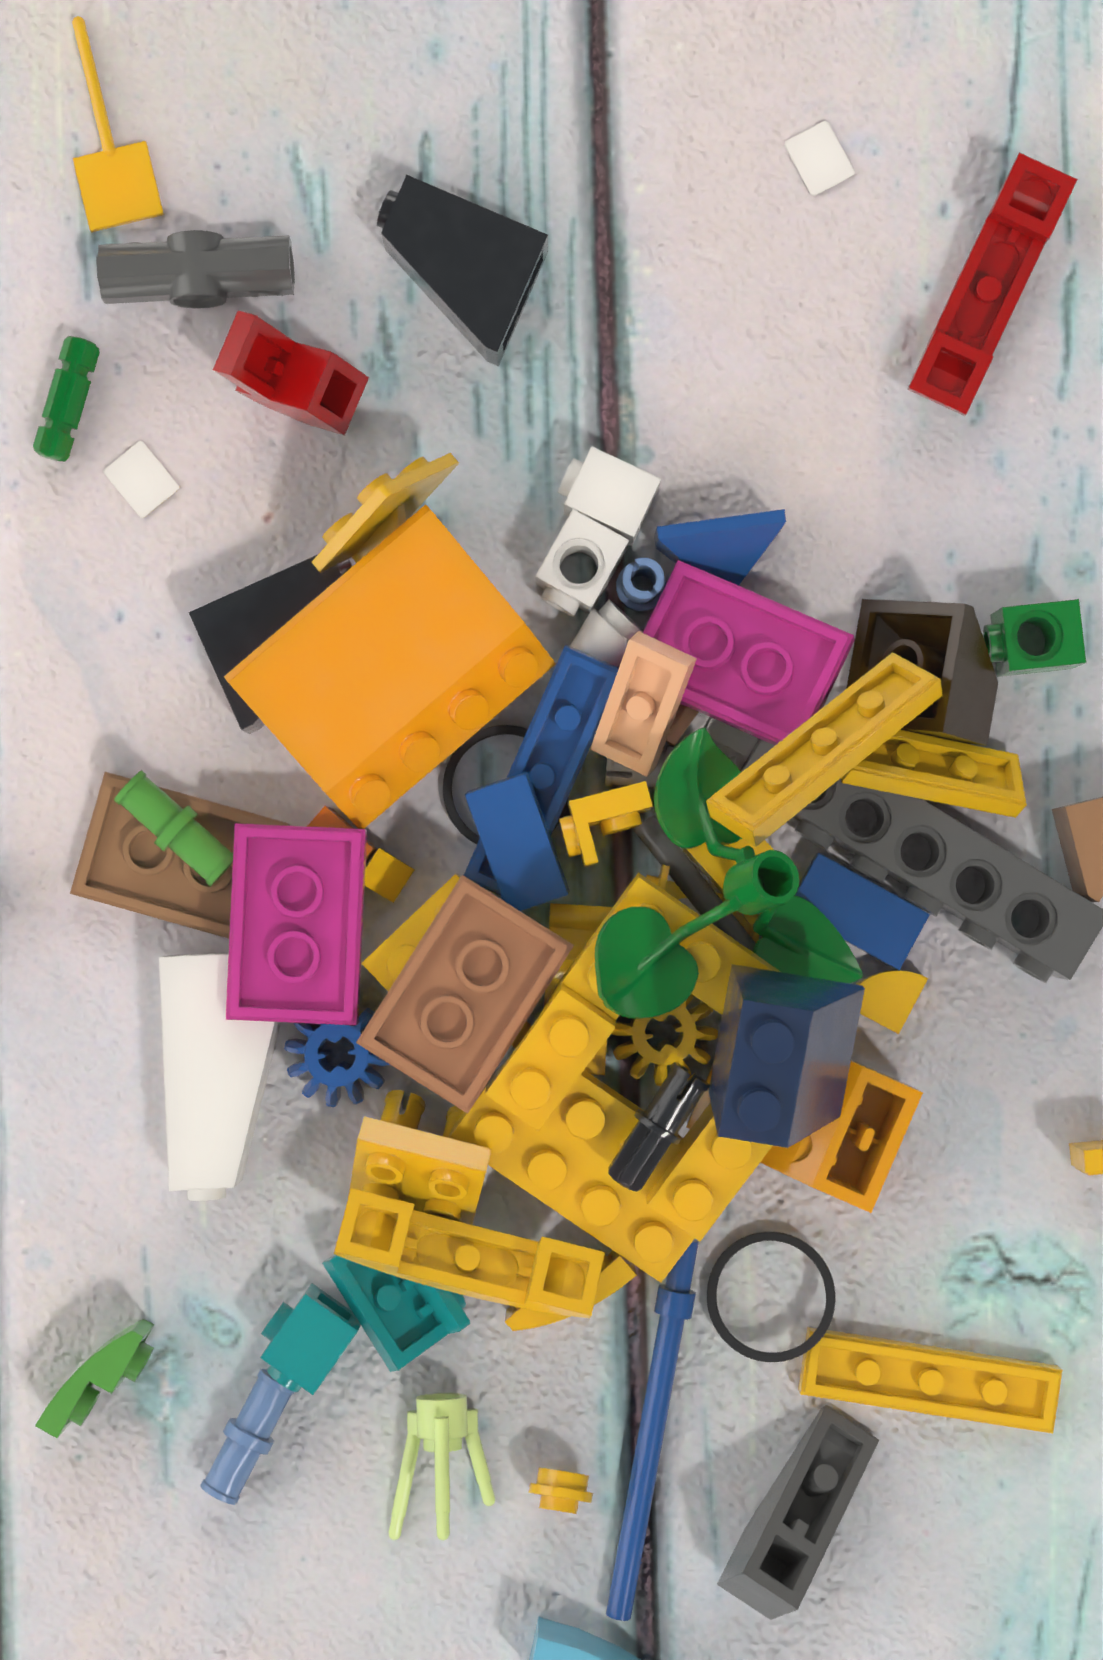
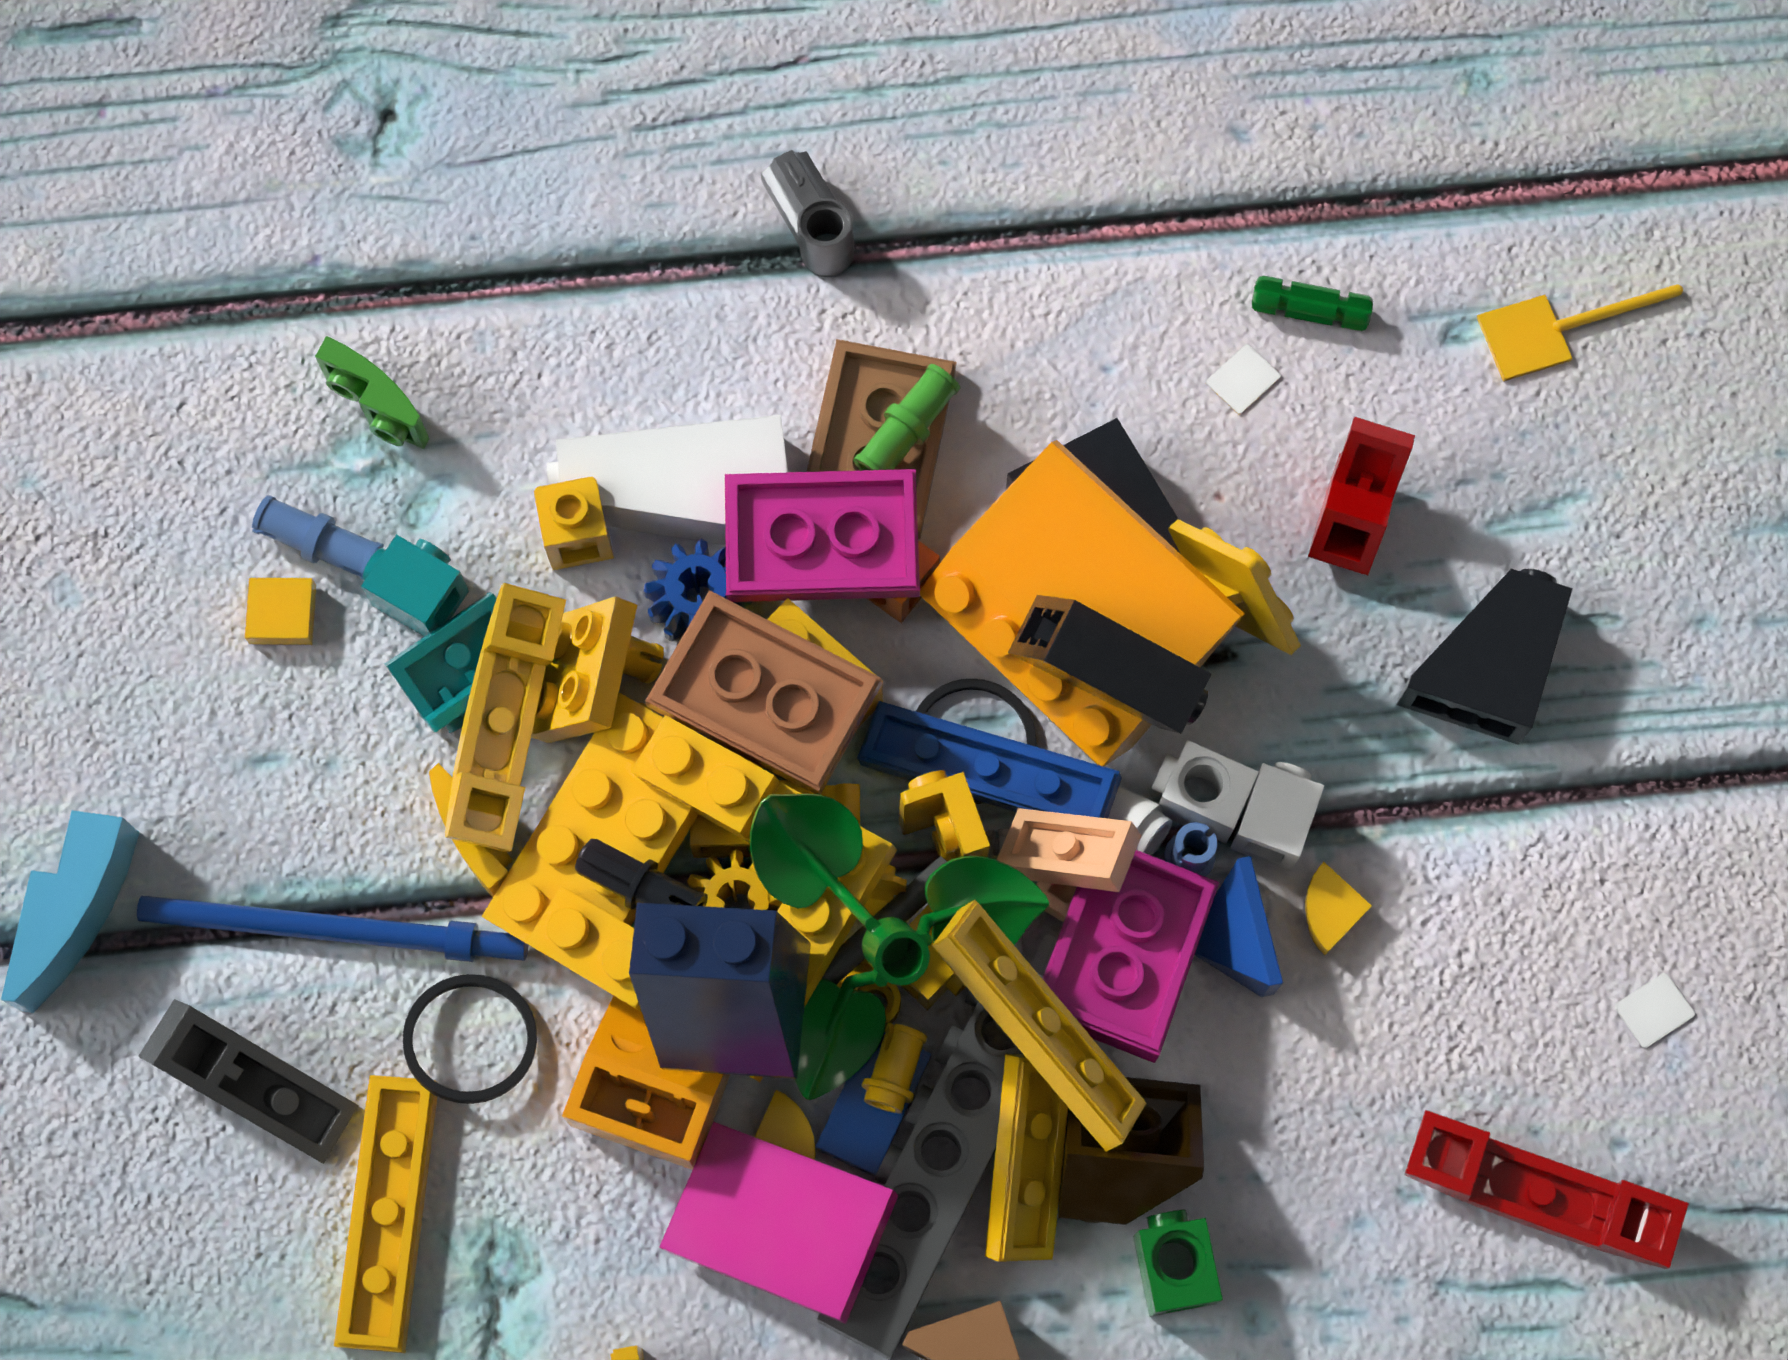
camera: 85 degrees right, 15 degrees down
(195, 269) = (1452, 409): dark grey piece -> none
(256, 1177) = (573, 523): none -> yellow bracket
(321, 1475) = (280, 611): none -> yellow tile
(387, 874) = (877, 628): yellow piece -> none
(442, 1424) = (329, 714): yellowish green plant -> none
(473, 646) = (1111, 663): none -> black slope
(517, 842) = (917, 743): blue tile -> none
(561, 1490) = (268, 838): yellow plate -> none
(702, 454) = (1331, 908): none -> yellow tile
(837, 889) = (894, 1068): none -> yellow pin
(976, 1009) = (779, 1222): none -> dark pink tile

